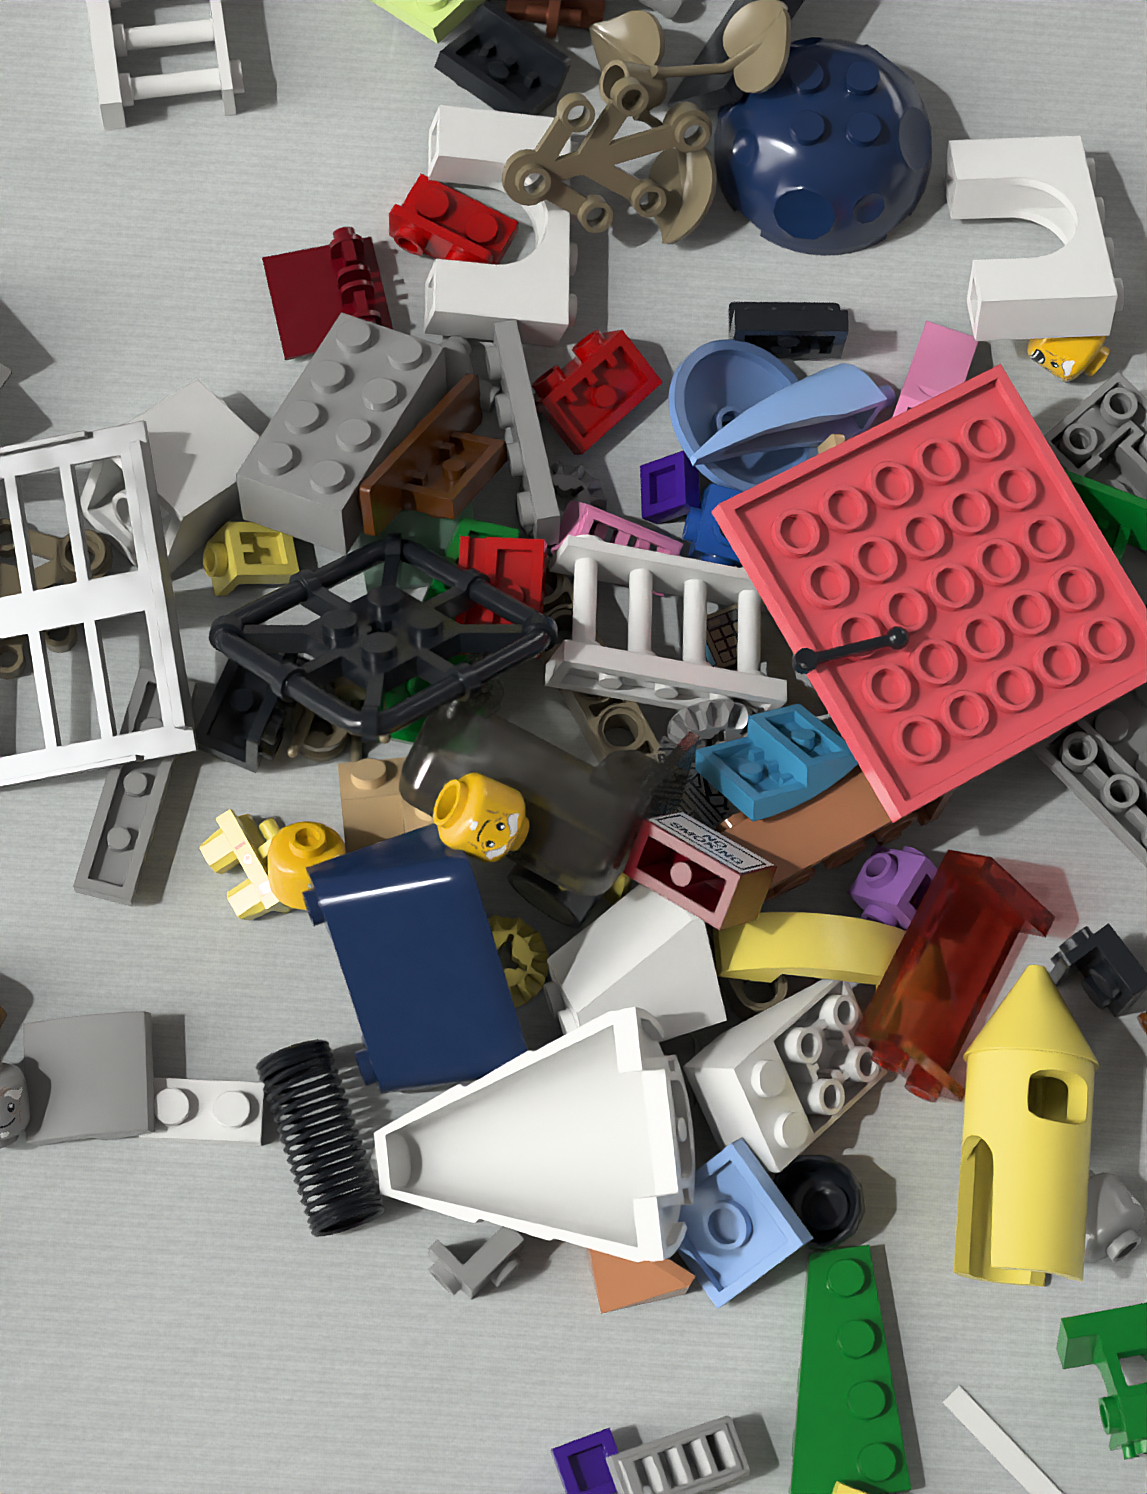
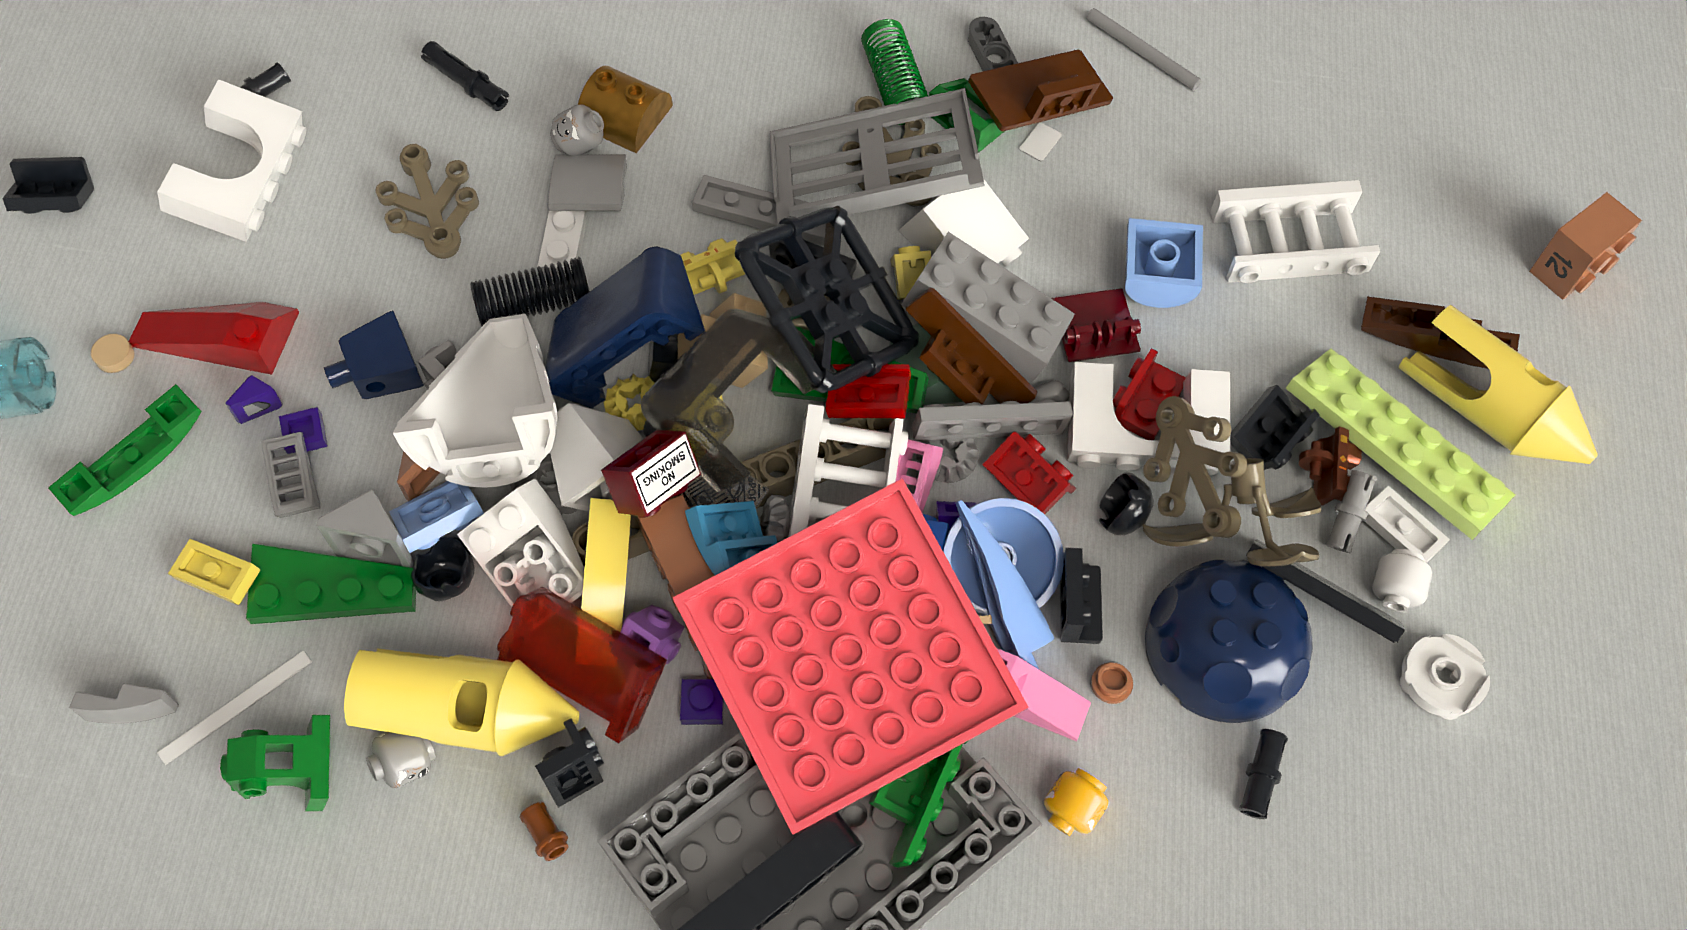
camera: 100 degrees right, 10 degrees down
(137, 1341) = (417, 163): none -> dark tan plant
(234, 185) = (1163, 262): none -> light blue brick
(294, 850) = (702, 270): yellow head -> none
(455, 1372) = (376, 360): none -> dark blue torso
(481, 817) = (689, 327): yellow head -> none
(641, 262) = (1126, 504): none -> black hair
(778, 1310) = (364, 532): none -> light grey slope
(806, 659) = (785, 532): black hinge -> none
(895, 294) = (1112, 683): none -> nougat plate
(972, 822) = (701, 702): none -> dark purple plate
(999, 116) = (1263, 774): none -> black pin
(1054, 186) = (1108, 791): white arch -> none

